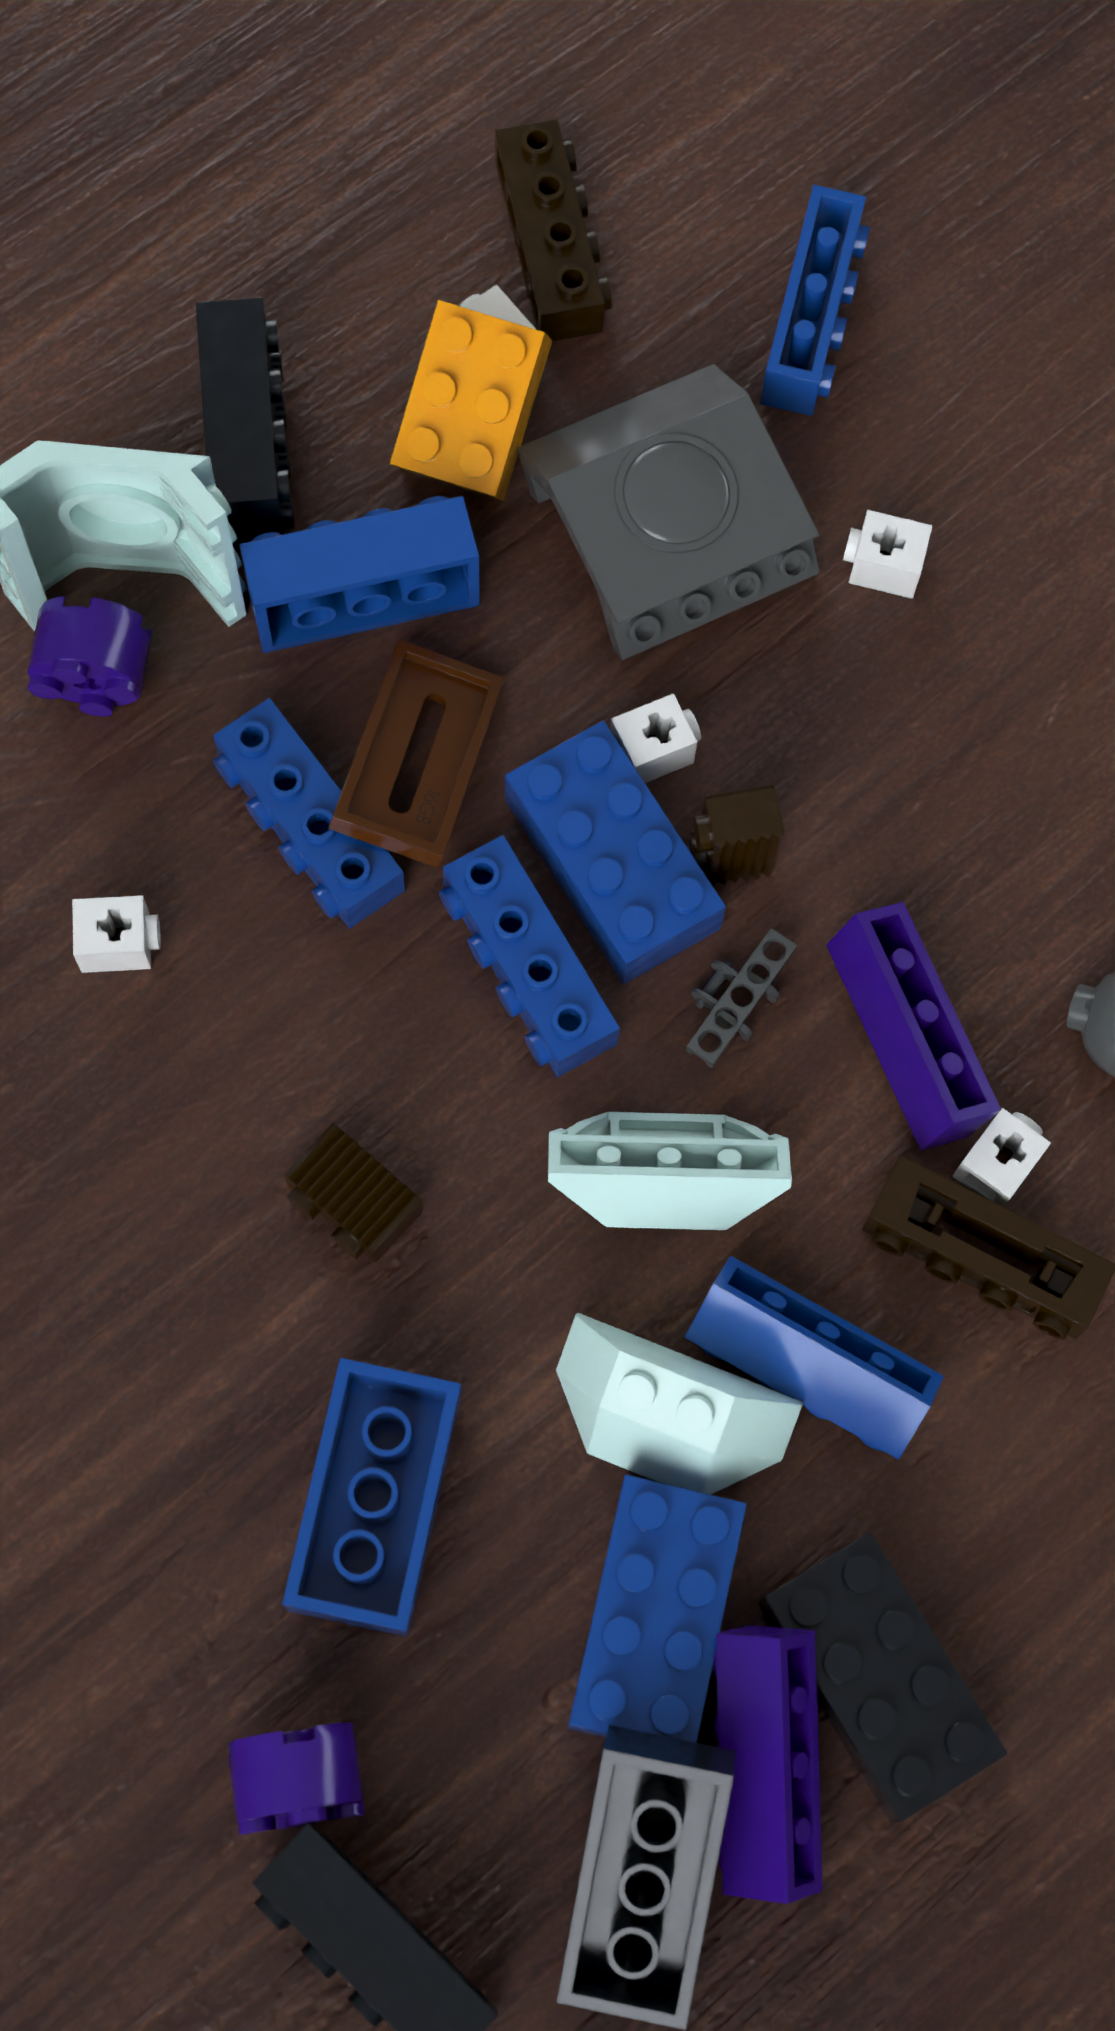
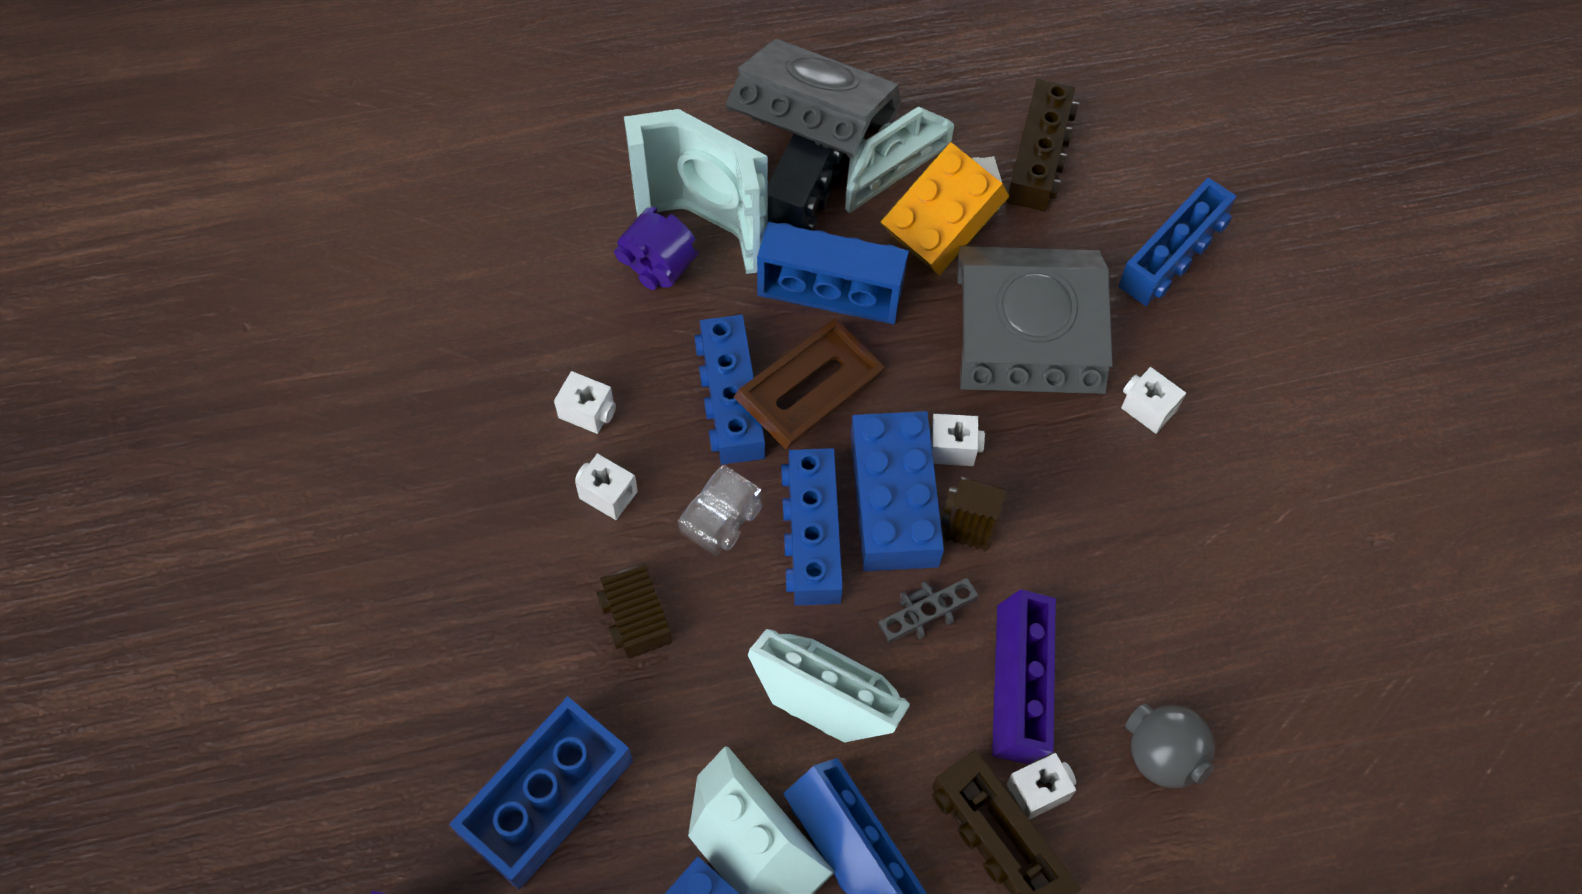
camera: 30 degrees right, 10 degrees down
(194, 313) = (813, 96): none -> dark grey panel
(228, 1055) = (606, 498): none -> white brick
(344, 344) = (895, 153): none -> light aqua wedge
(391, 997) = (720, 510): none -> clear brick

